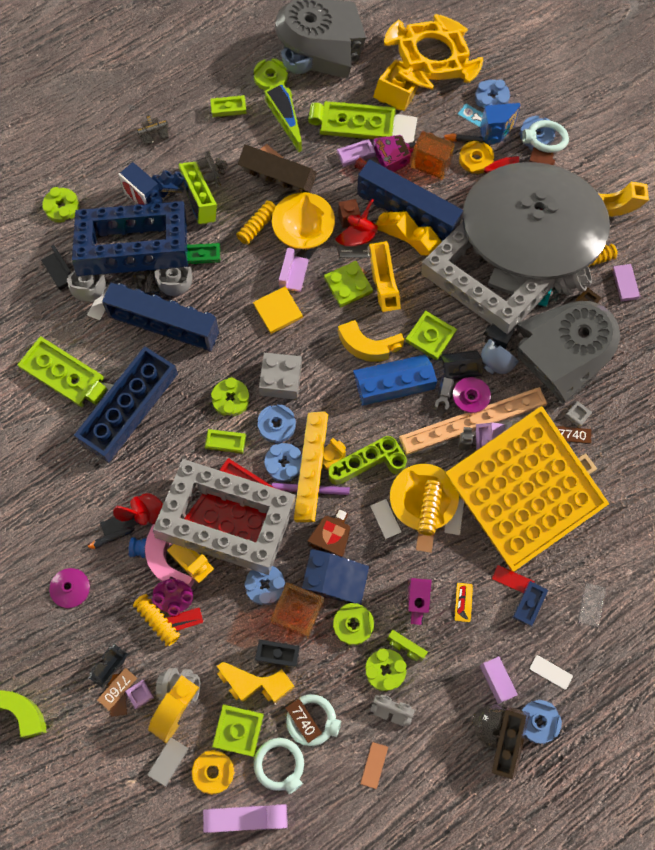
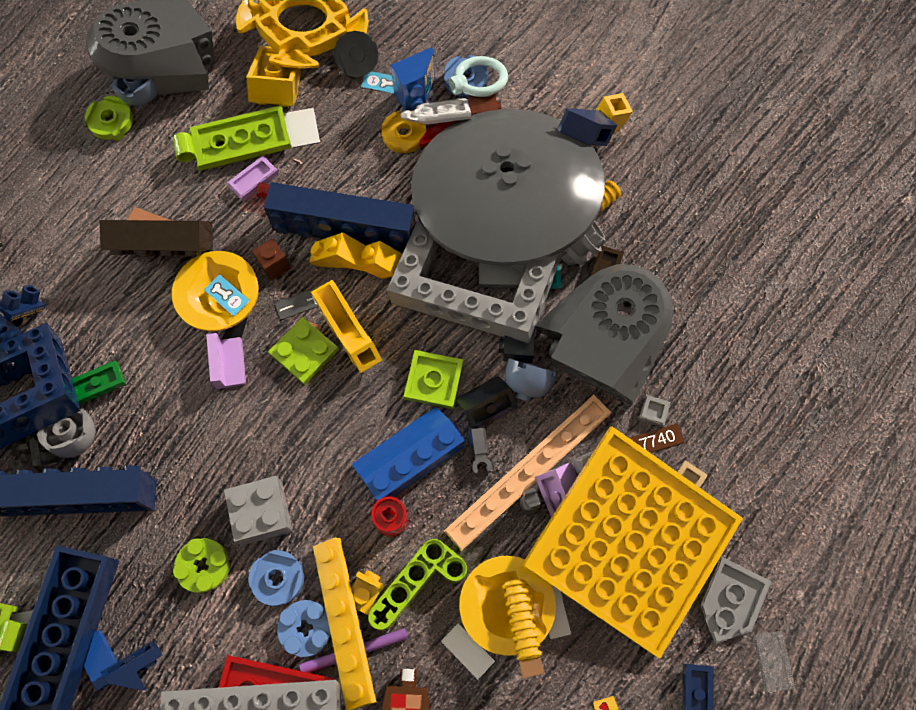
camera: 20 degrees left, 0 degrees up
(145, 433) = (98, 659): none -> blue tile
(161, 441) = (125, 670): none -> dark blue slope
(199, 195) = (64, 303): lime slope -> none
(214, 168) = (63, 260): clear smoke hips -> none
(225, 441) = (216, 630): lime tile -> none
(228, 106) = (67, 176): lime plate -> none
(256, 223) = (155, 315): yellow piece -> none
(277, 310) = (224, 420): yellow tile -> none
(280, 103) = (134, 149): slope -> none
(310, 226) = (226, 295): none -> medium azure sticker
(360, 231) = (293, 278): red piece -> none
(366, 348) = (357, 429): yellow arch -> none
(366, 412) = (389, 516): none -> red wheel
(393, 152) = (299, 161): magenta torso -> none
(432, 155) = (349, 148): clear orange brick -> none
(463, 88) = (356, 53): none -> black tile
(463, 138) = (380, 113): black piece -> none
(471, 387) = (514, 427): magenta dish -> none
(495, 87) = (394, 39): medium blue plate -> none
(507, 151) = (439, 112): none -> white tile
(510, 579) = (664, 668): red sticker -> none
(580, 556) = (733, 600): none -> light grey tile
(610, 198) = (587, 126): none -> dark blue slope
(625, 282) = (643, 222): lavender tile -> none

